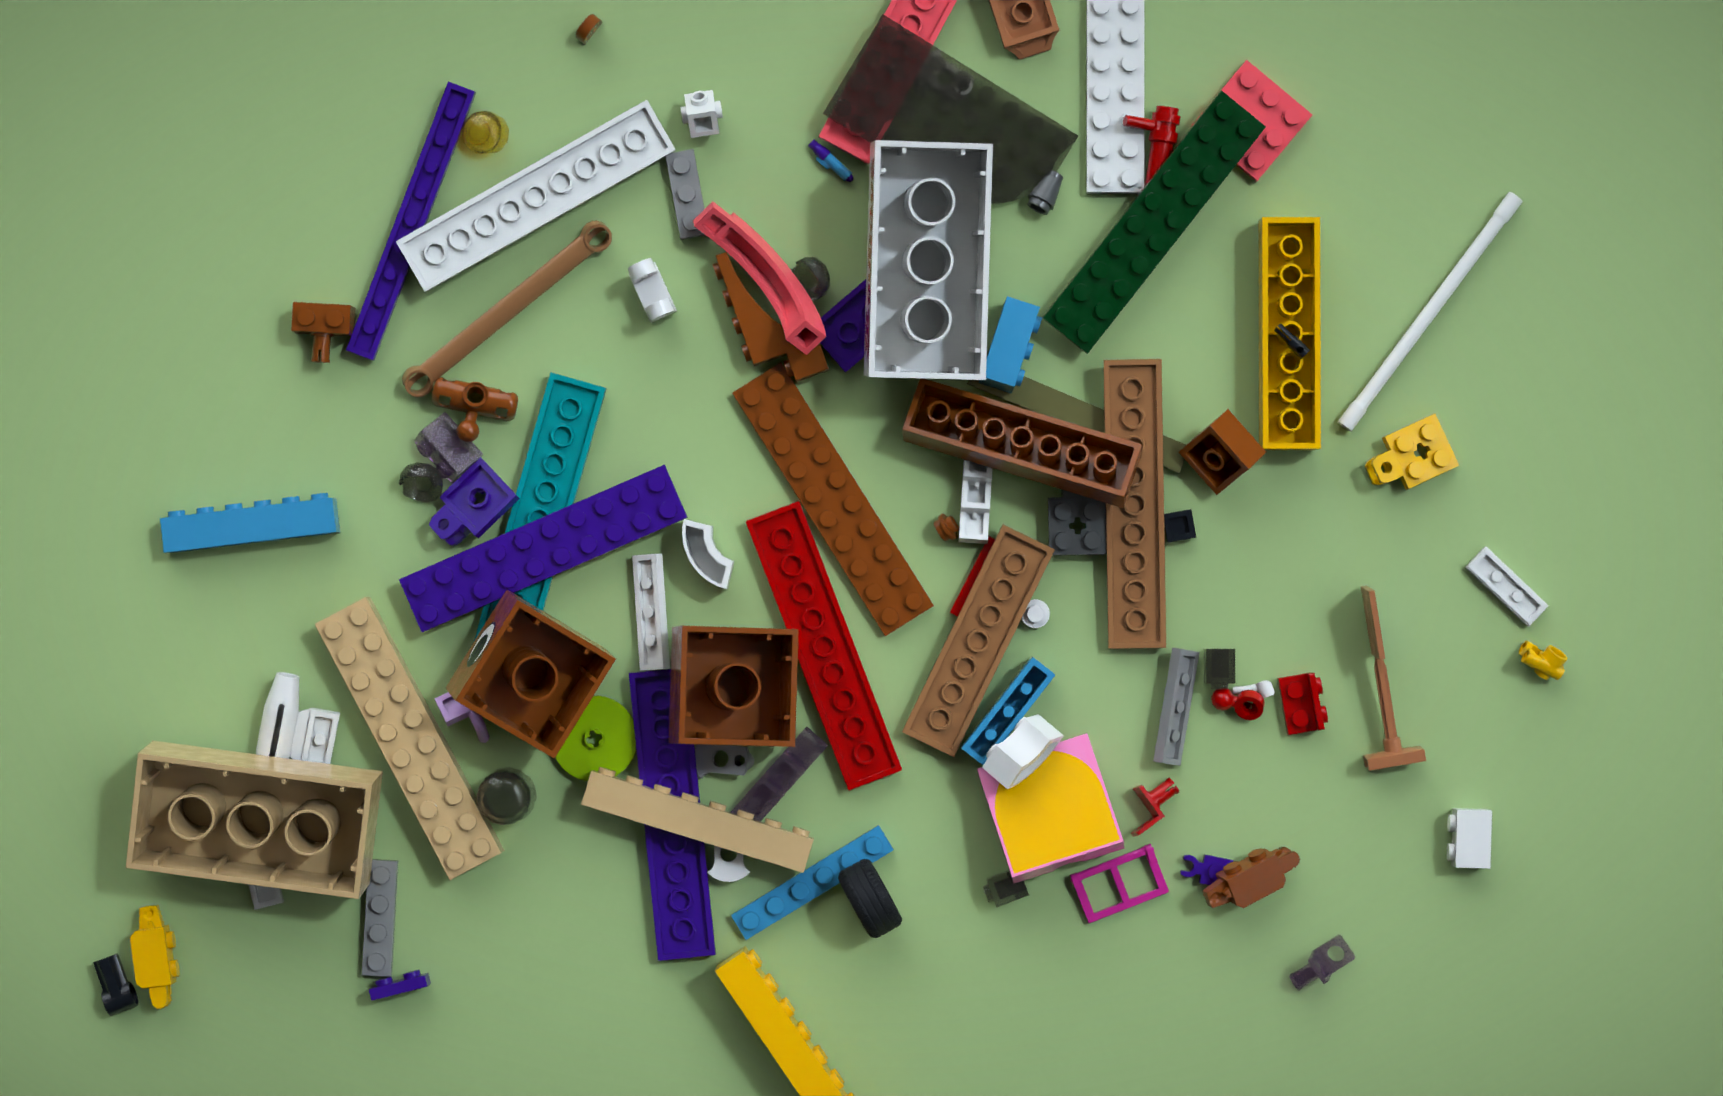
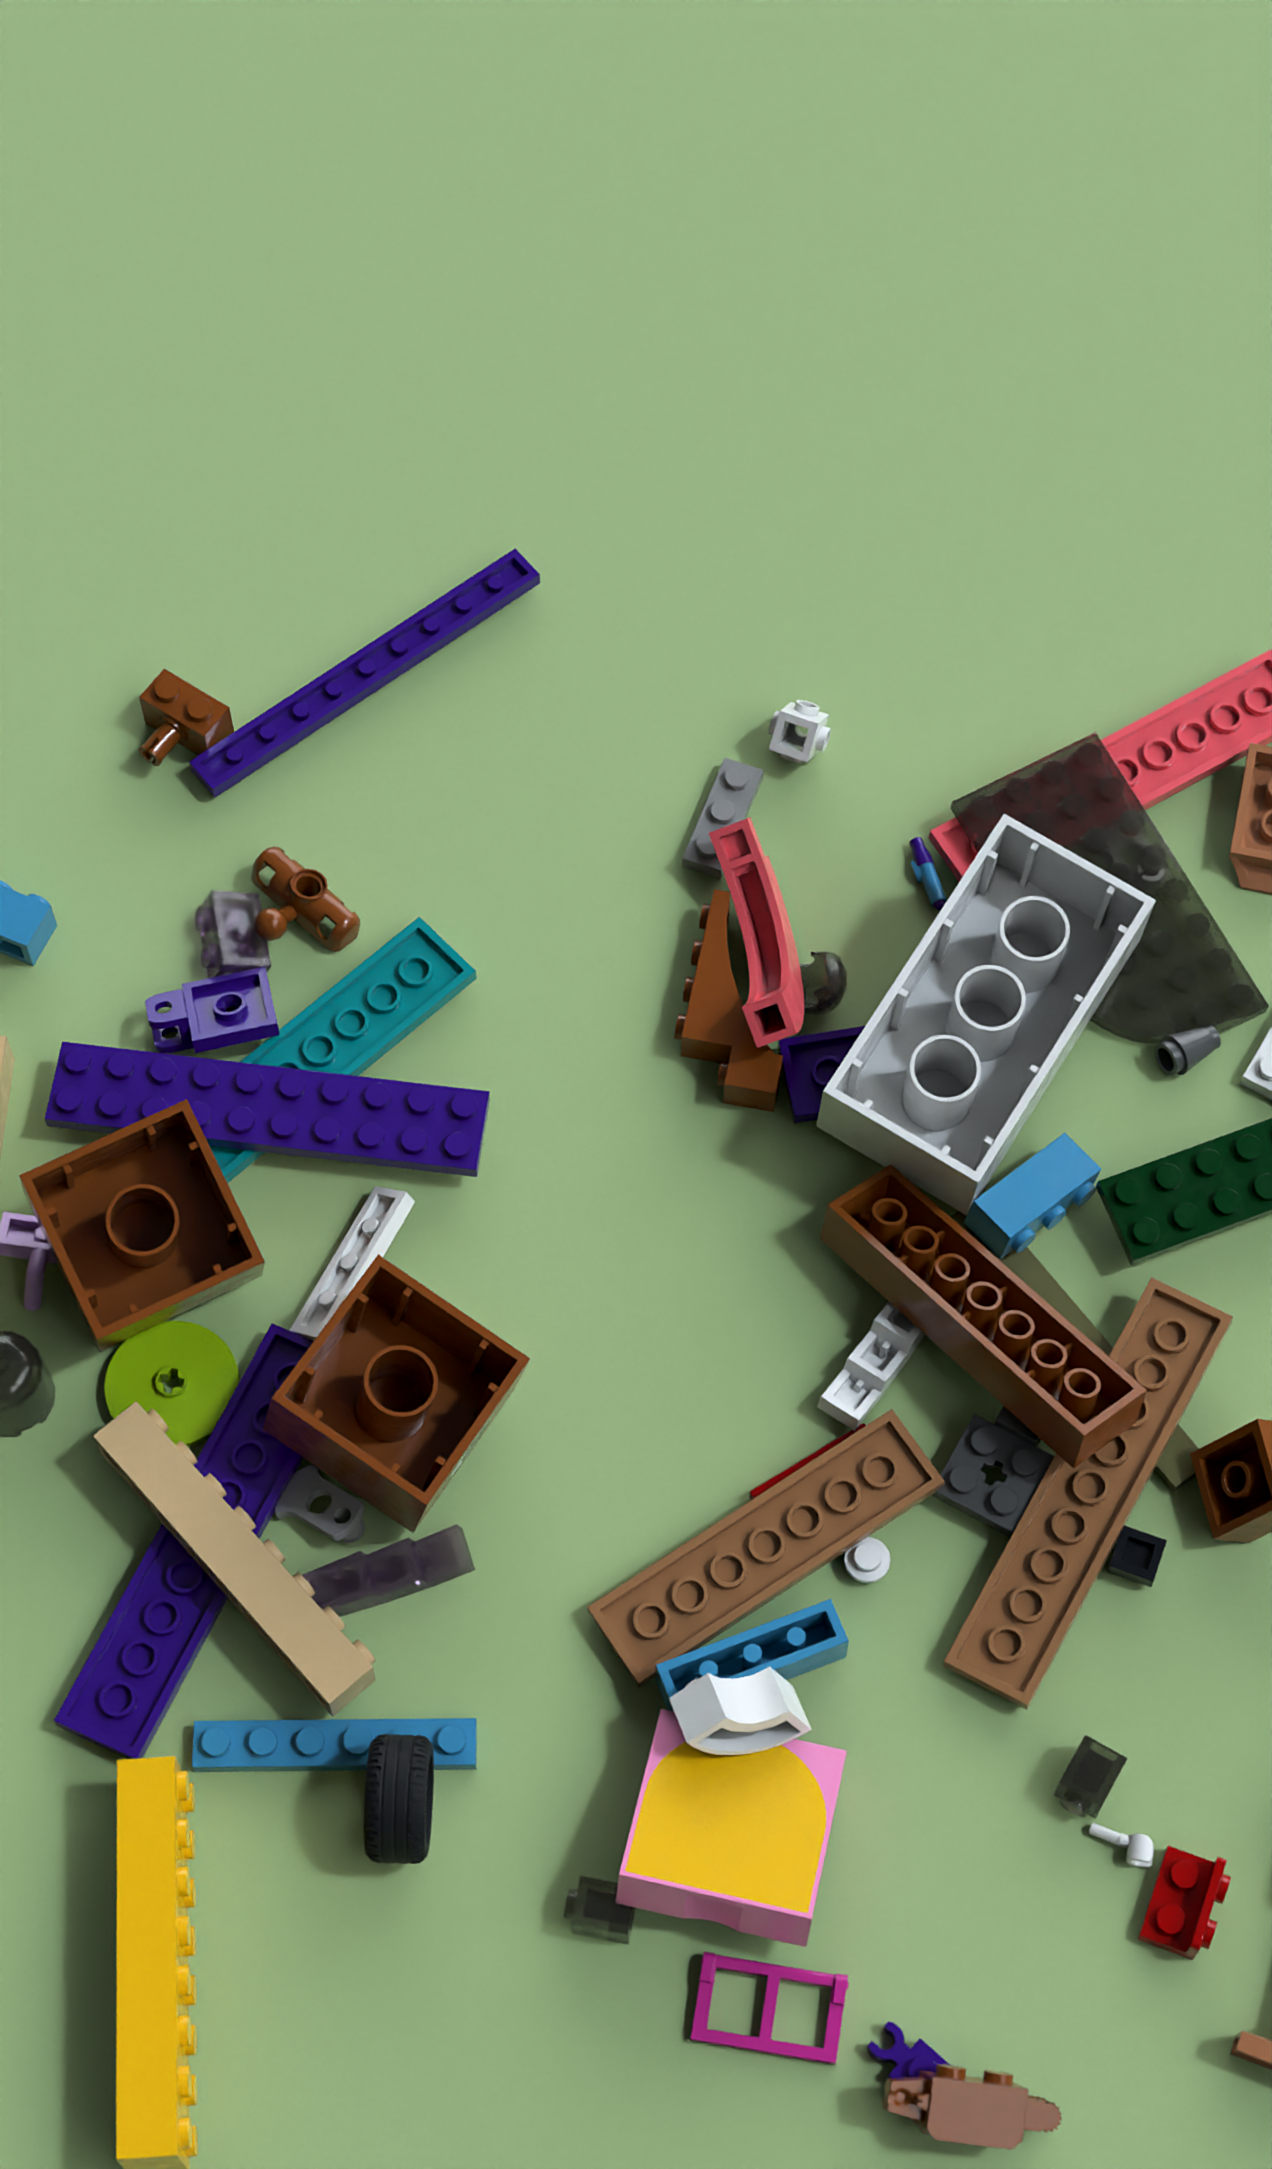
camera: 30 degrees right, 25 degrees down
(421, 482) = (172, 953): clear smoke hair -> none
(485, 132) = (522, 626): clear yellow hair -> none
(507, 308) = (418, 821): medium nougat piece -> none
(535, 196) = (534, 716): white plate -> none
(588, 28) = (719, 581): dark orange tile -> none
(651, 290) = (608, 885): white piece -> none
(704, 555) = (468, 1224): white brick -> none
(728, 870) = (229, 1655): white piece -> none
(824, 645) = (551, 1445): red plate -> none
(833, 499) = (681, 1272): dark orange plate -> none
(946, 527) = (811, 1379): dark orange plate -> none
(1152, 801) = (885, 1913): red bracket -> none
(1176, 706) = (995, 1798): light grey plate -> none
(1224, 699) = (1072, 1829): red plate -> none

